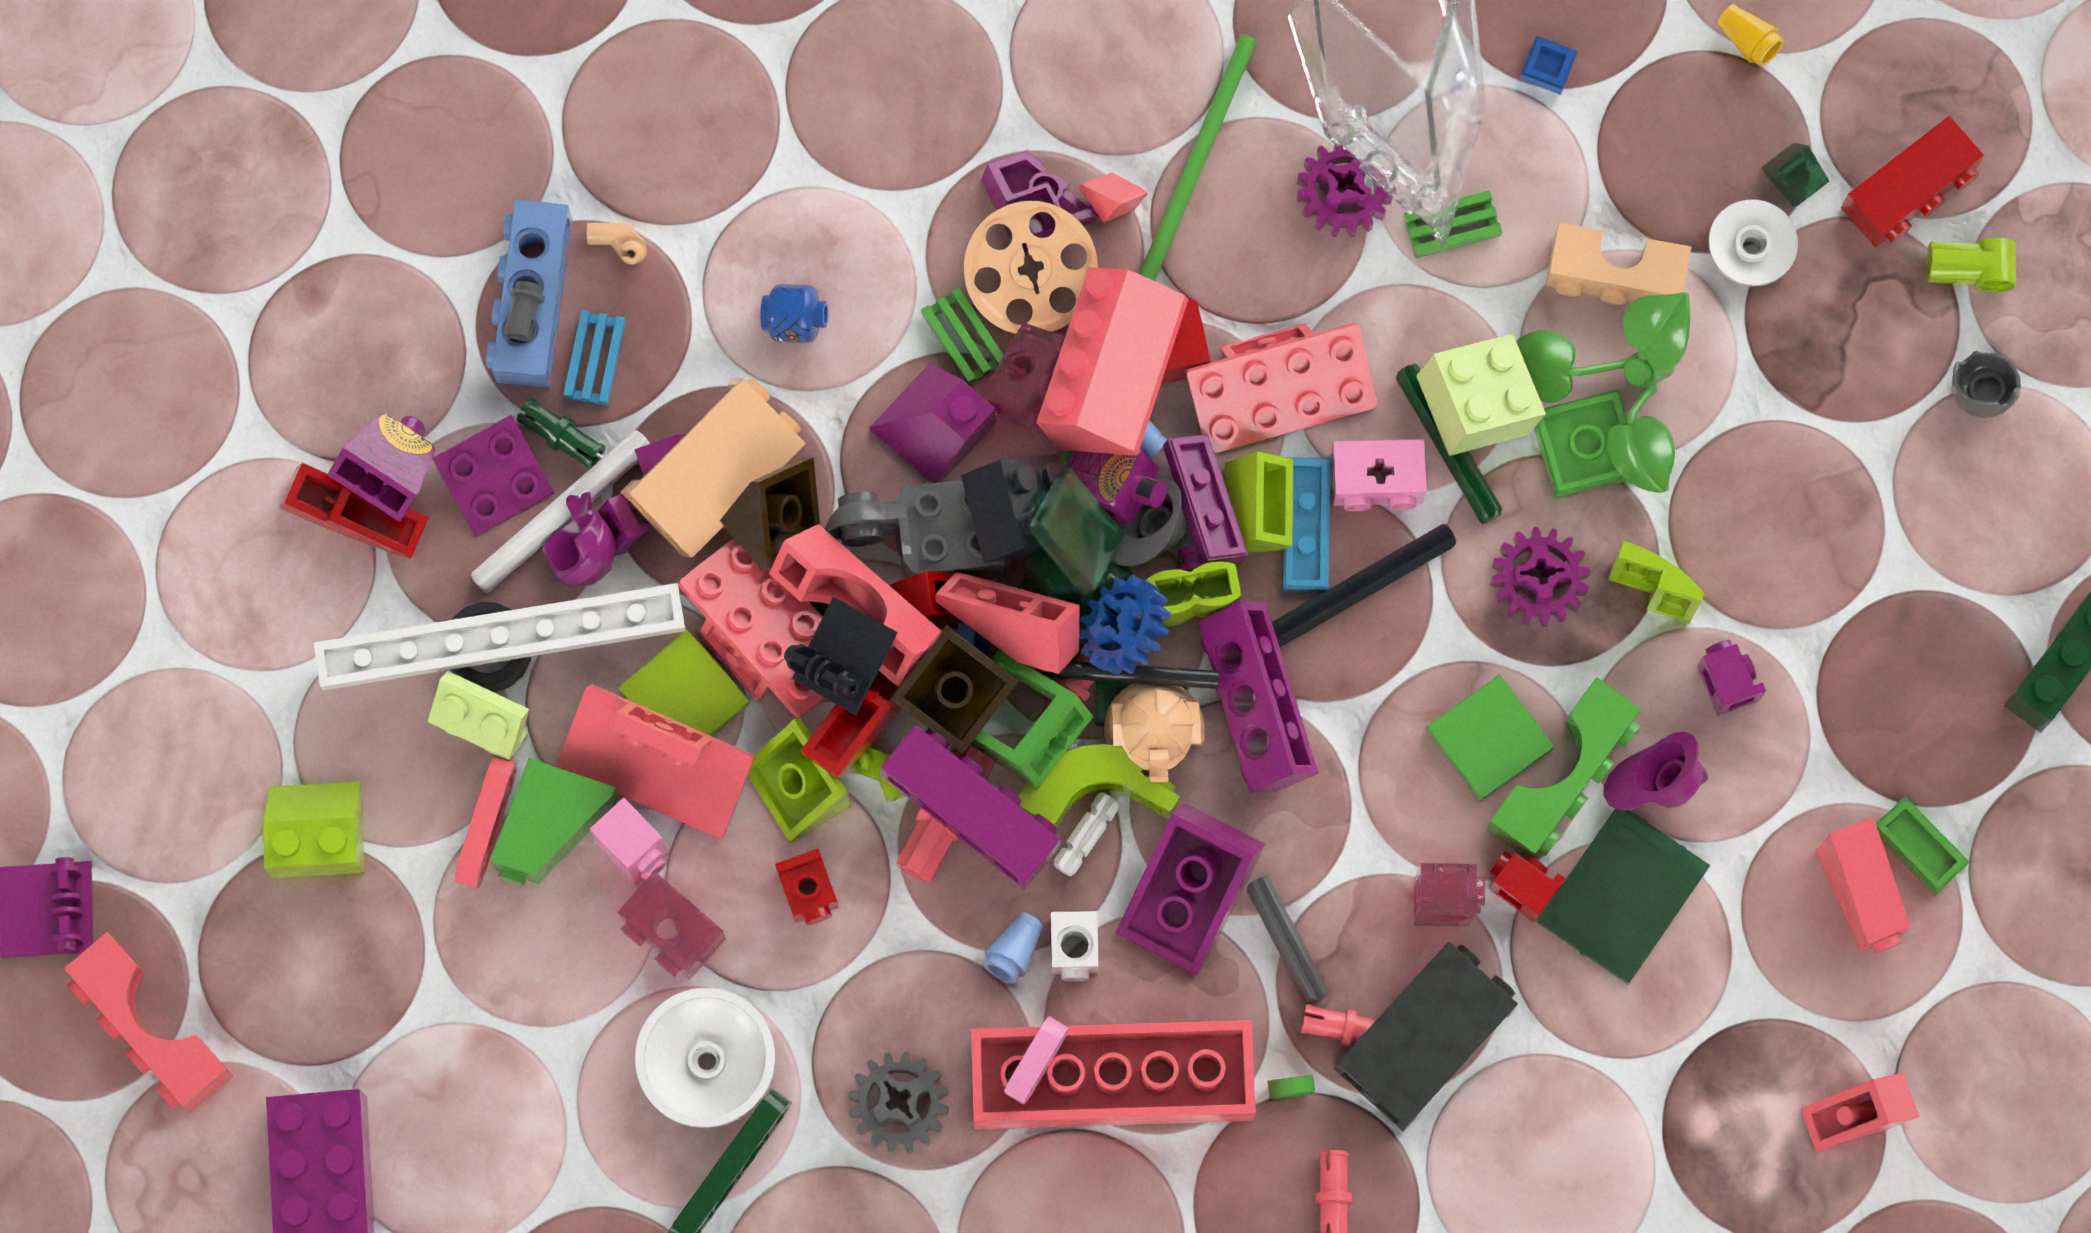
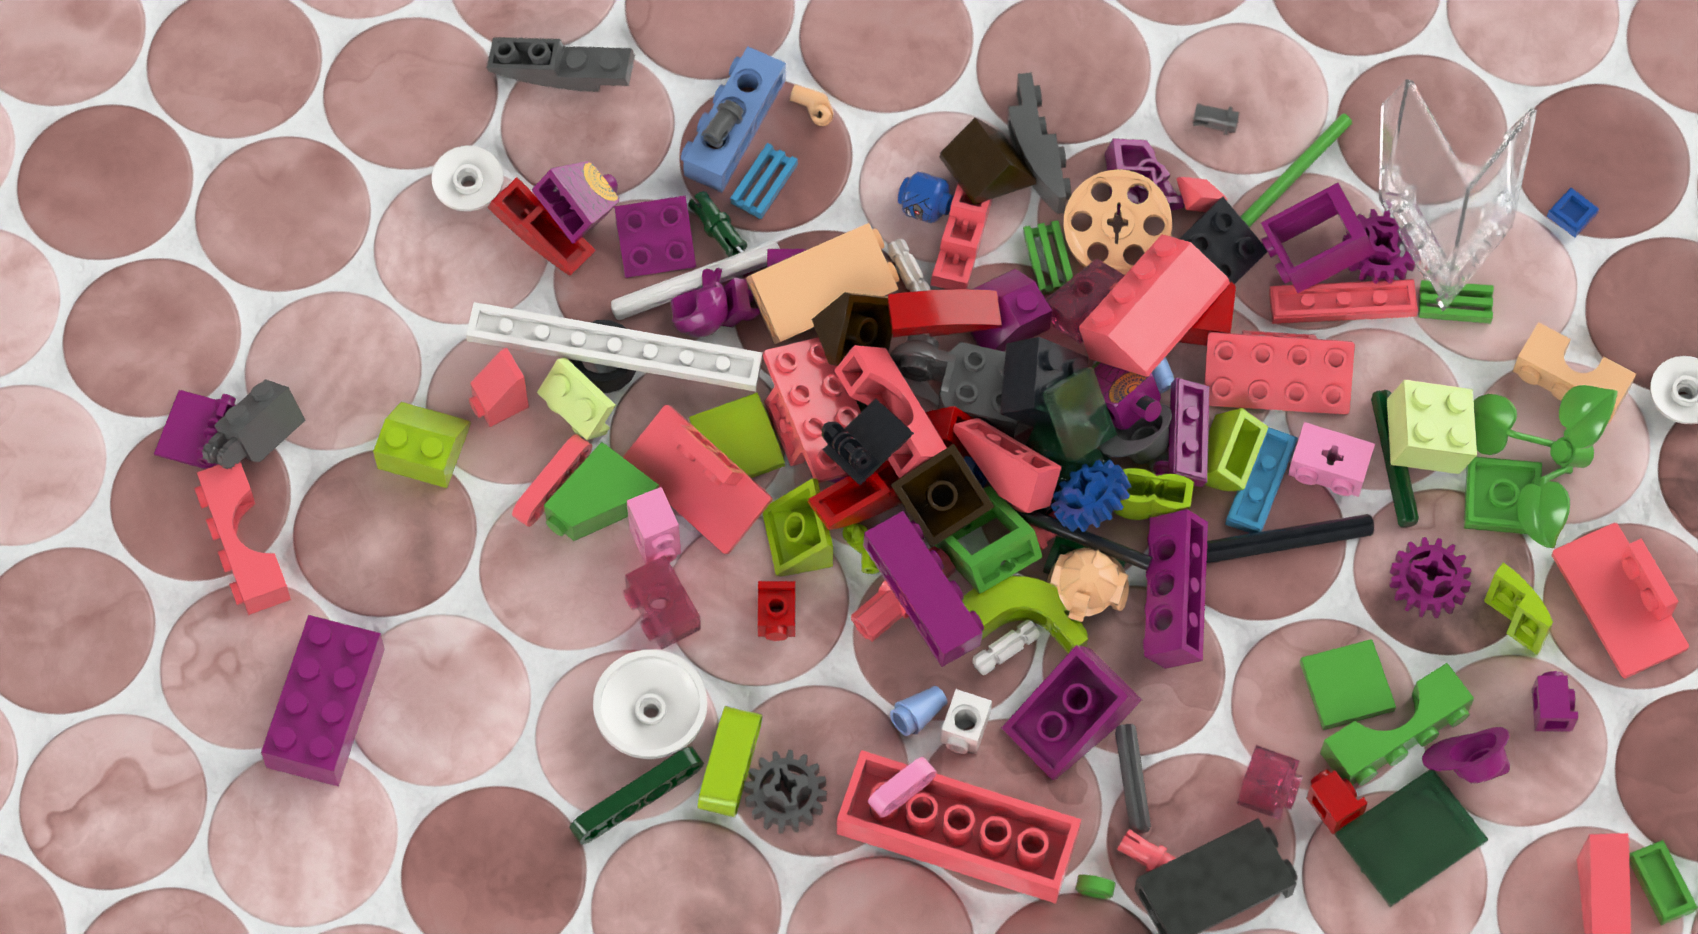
camera: 20 degrees right, 10 degrees down
(110, 887) = (254, 426): none -> dark grey hinge
(233, 462) = (464, 165): none -> white dish
(298, 298) = (560, 66): none -> dark grey slope
(381, 736) = (499, 390): none -> coral slope
(808, 411) = (907, 266): none -> white axle
(821, 1089) = (729, 761): none -> lime beam
(850, 247) = (985, 163): none -> dark brown slope
(852, 330) = (960, 242): none -> coral slope
(871, 457) = (943, 312): none -> red slope
(905, 213) = (1036, 147): none -> dark grey slope
(1097, 93) = (1216, 118): none -> dark grey pin
(1162, 246) = (1226, 240): none -> black hinge
(1240, 189) = (1306, 216): none -> magenta window
(1322, 269) = (1343, 301): none -> coral tile
(1764, 522) = (1623, 598): none -> coral bracket

